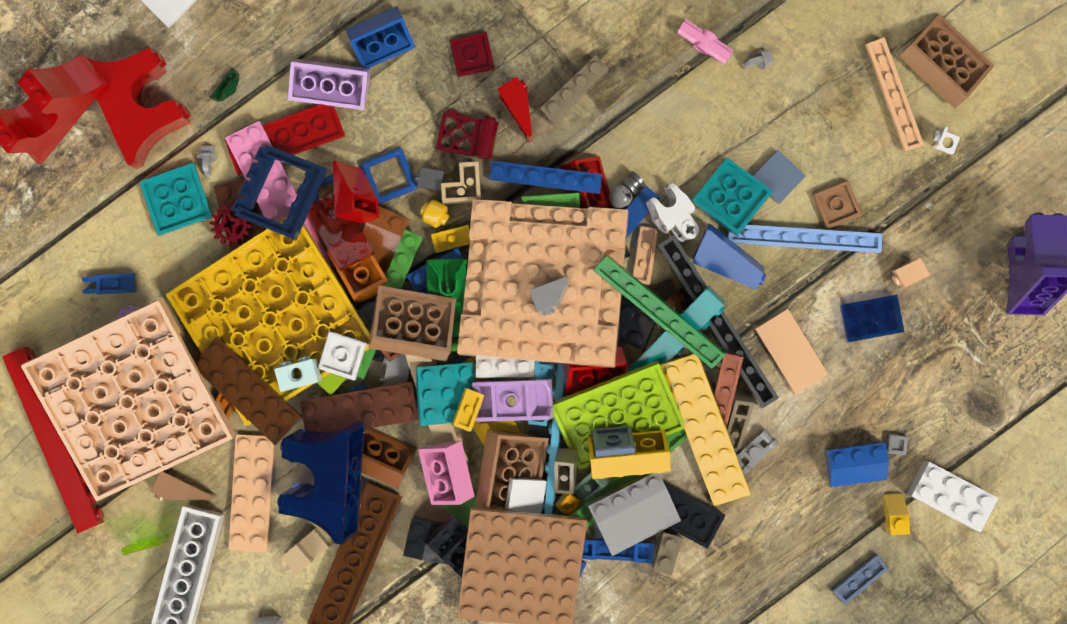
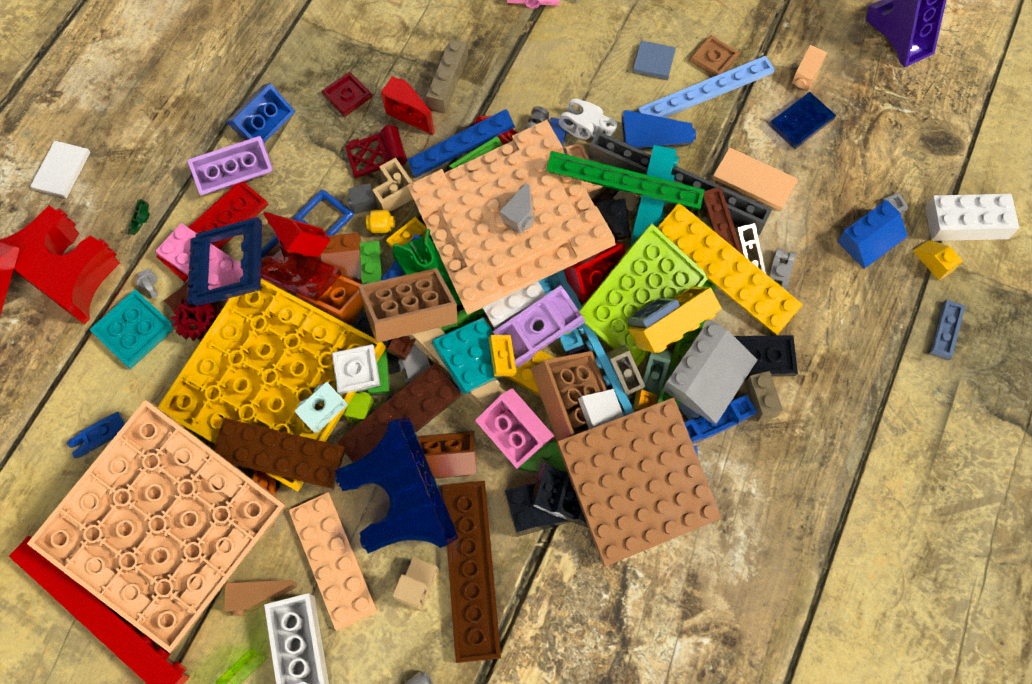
camera: 30 degrees left, 20 degrees down
(732, 196) = (627, 87): teal plate -> none

